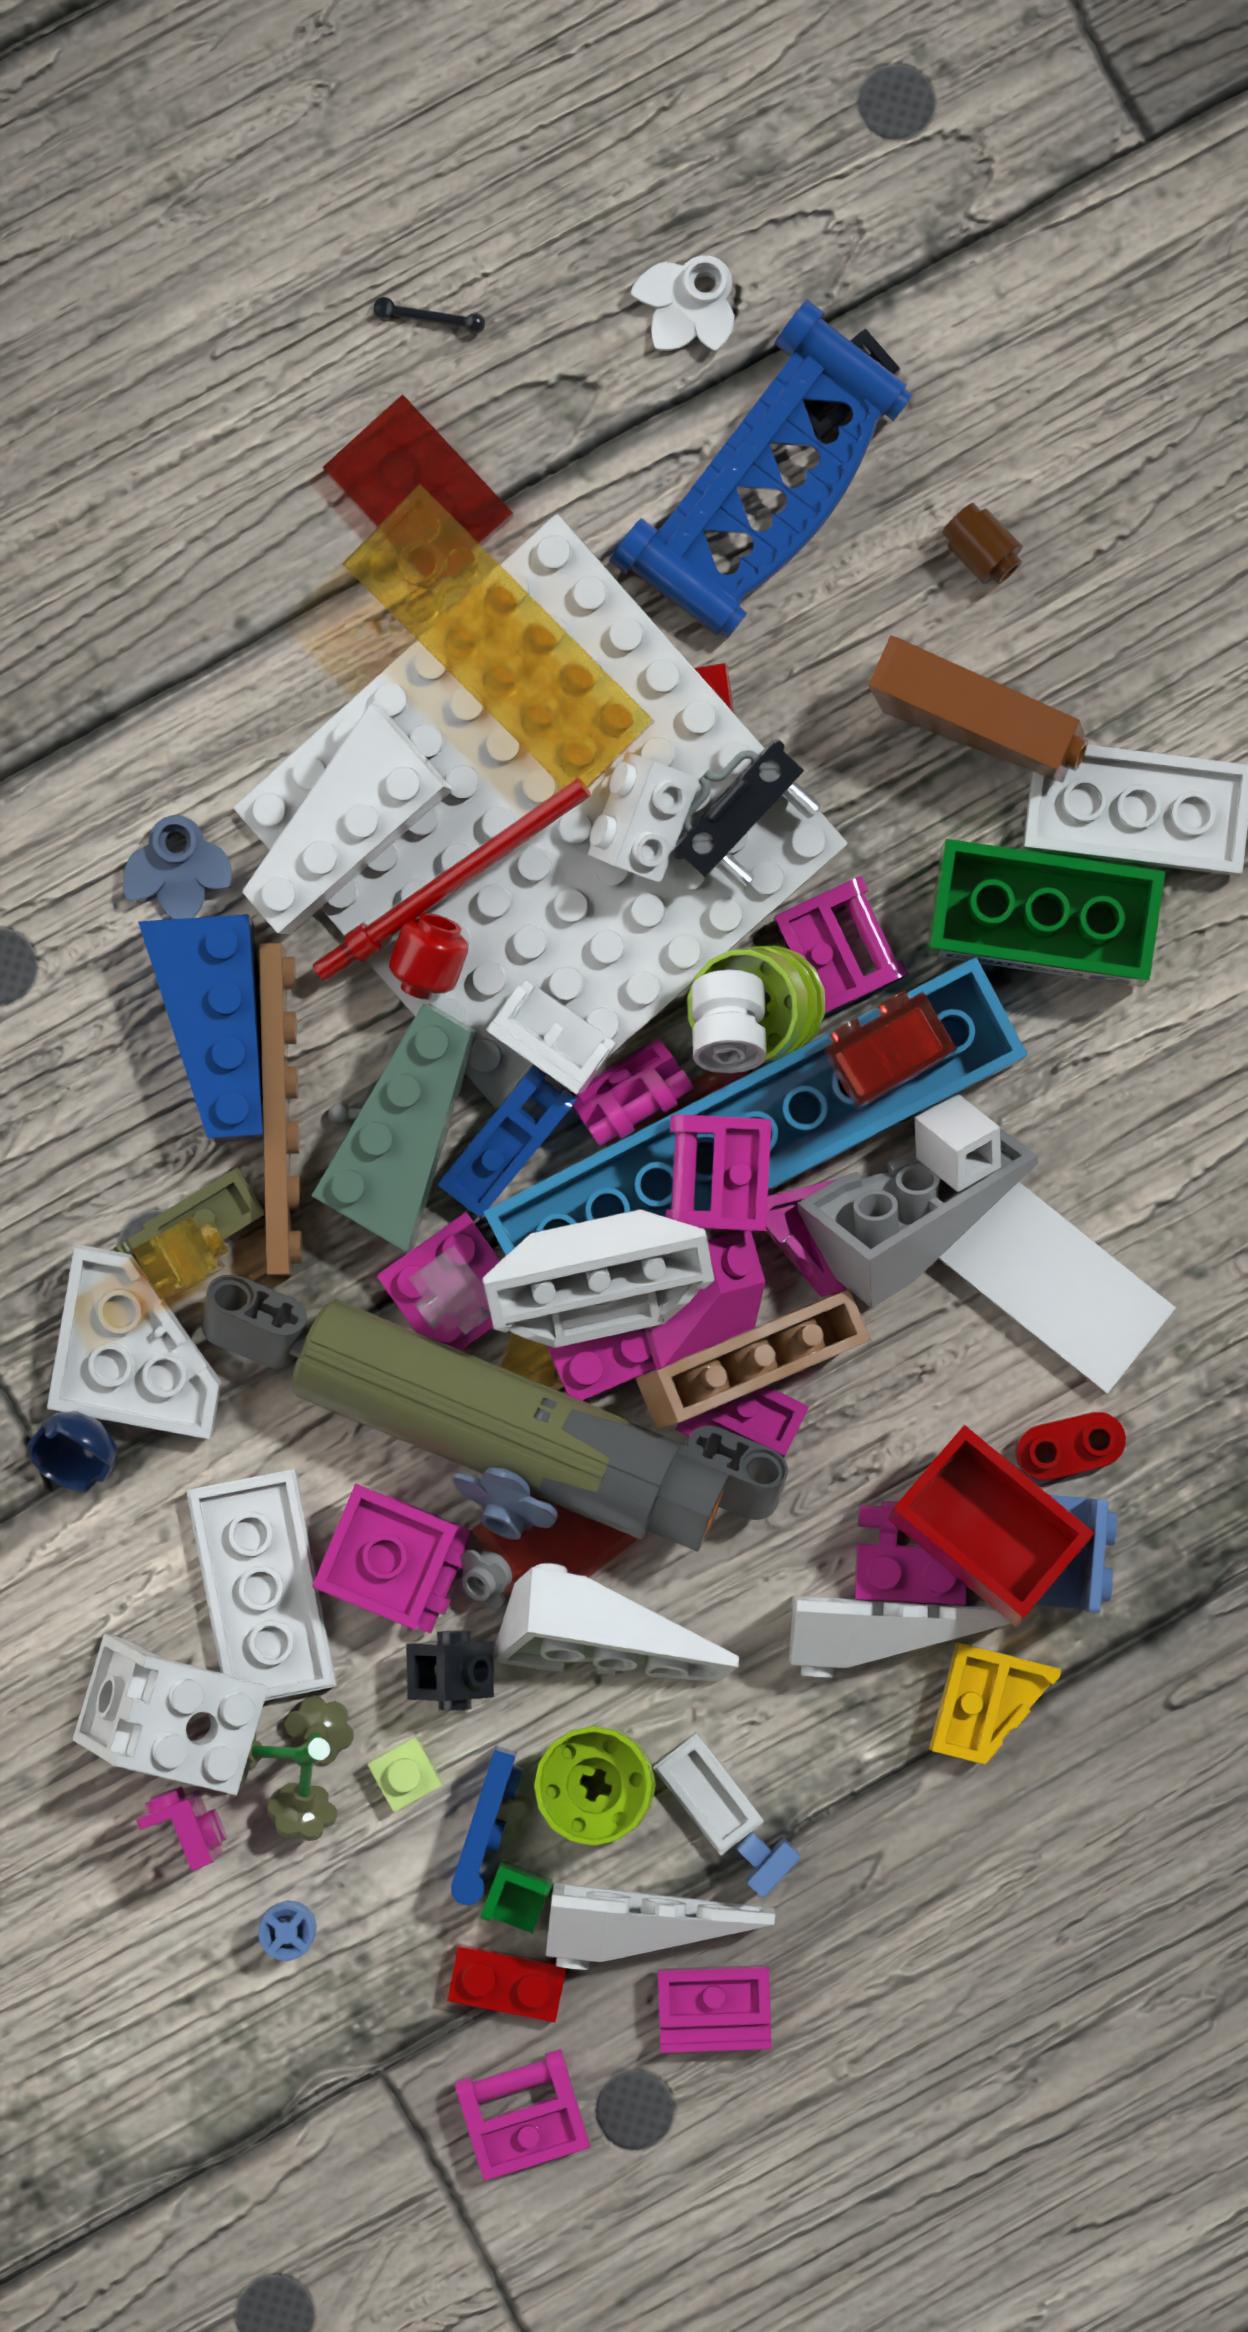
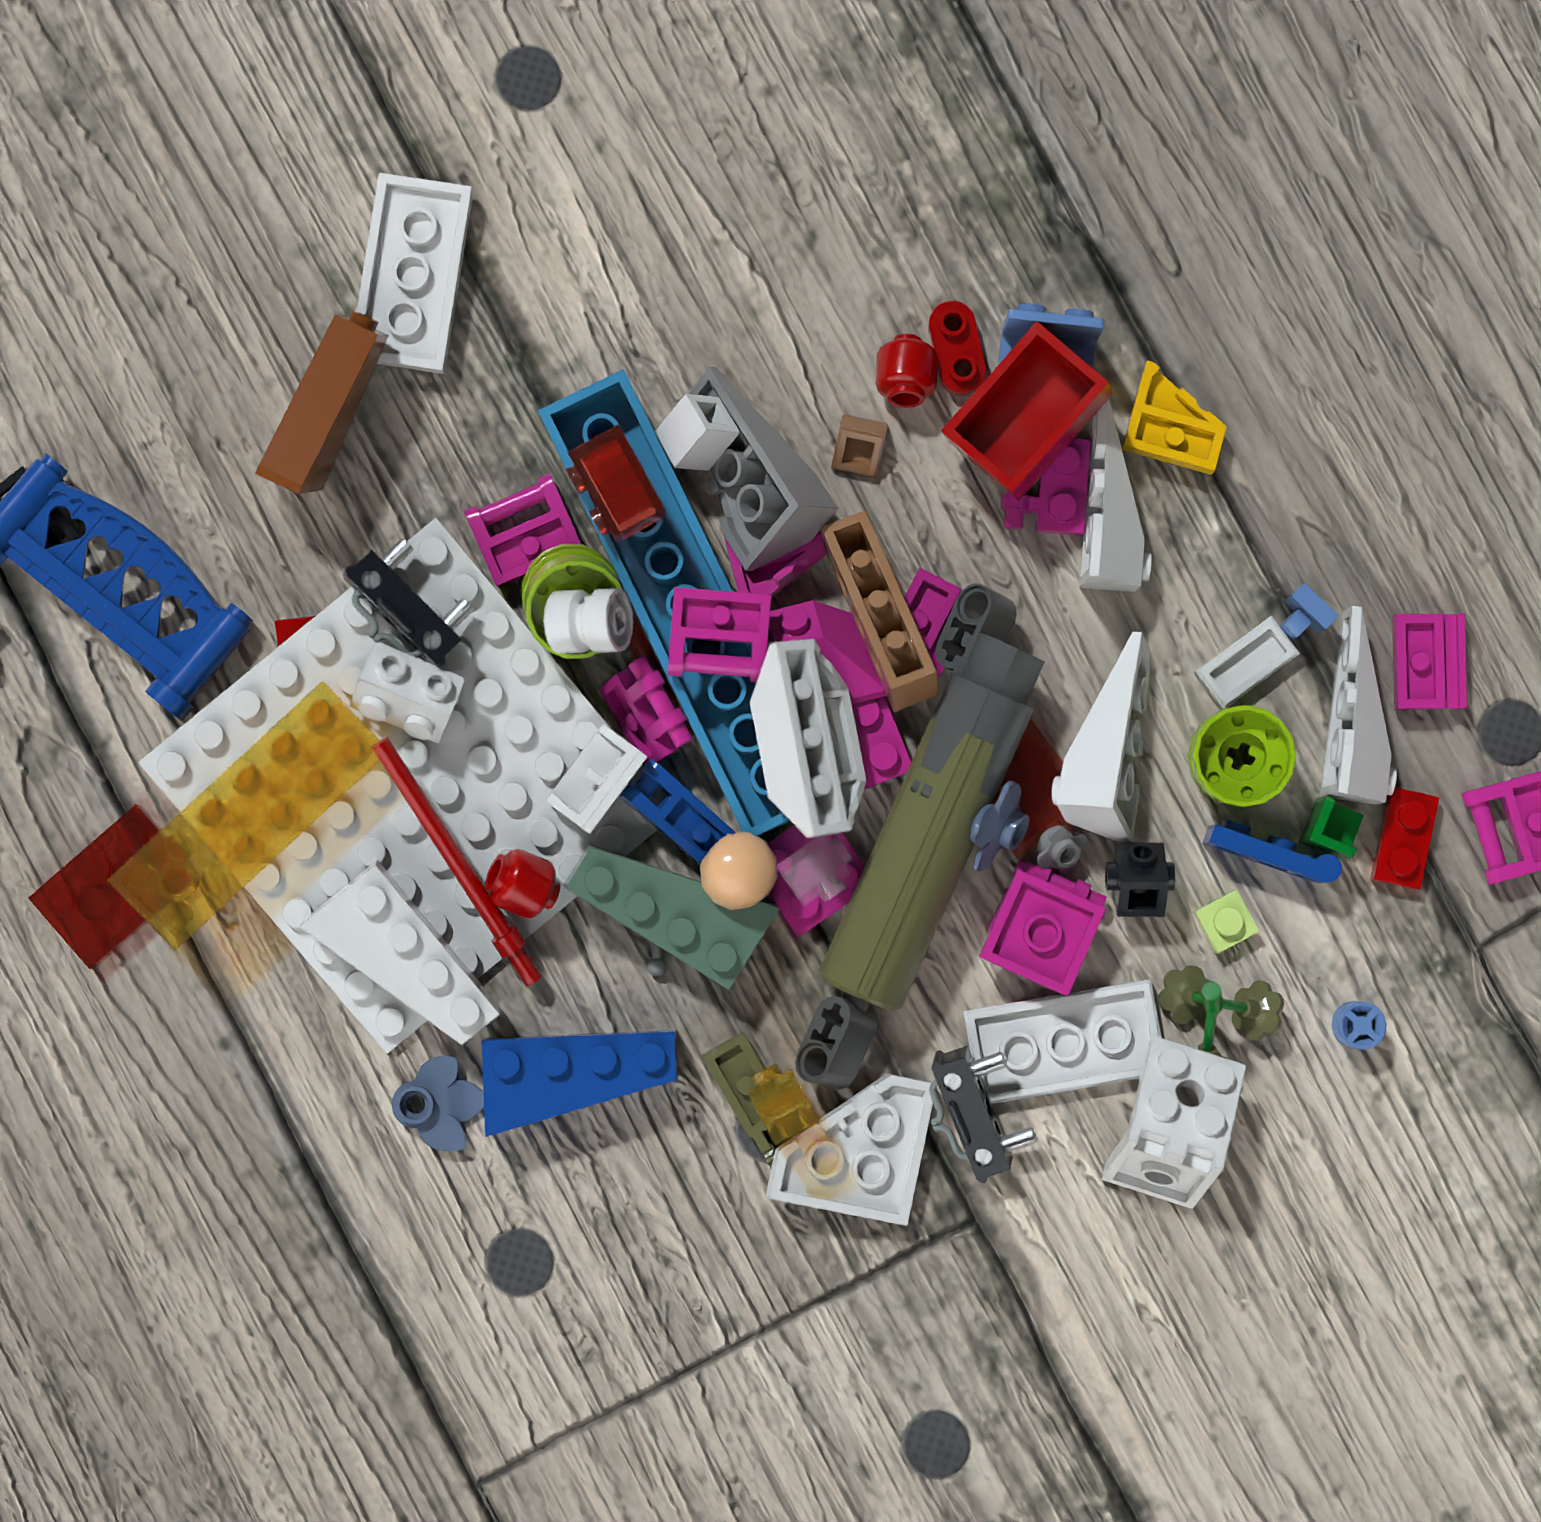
camera: 85 degrees left, 0 degrees up
(73, 1450) = (944, 1202): dark blue hair -> none
(177, 1481) = (973, 1113): none -> black piece
(198, 1830) = (1273, 1099): dark pink bracket -> none
(279, 1086) = (631, 1017): medium nougat plate -> none
(447, 1202) = (738, 871): none -> light nougat hair
(529, 1360) = (875, 807): clear yellow tile -> none
(952, 1334) = (859, 446): none -> medium nougat slope
(983, 544) = (179, 398): reddish brown brick -> none
(1040, 1386) = (906, 371): none -> red head
(1045, 913) = (500, 353): green brick -> none
(1059, 1286) = (821, 352): white tile -> none

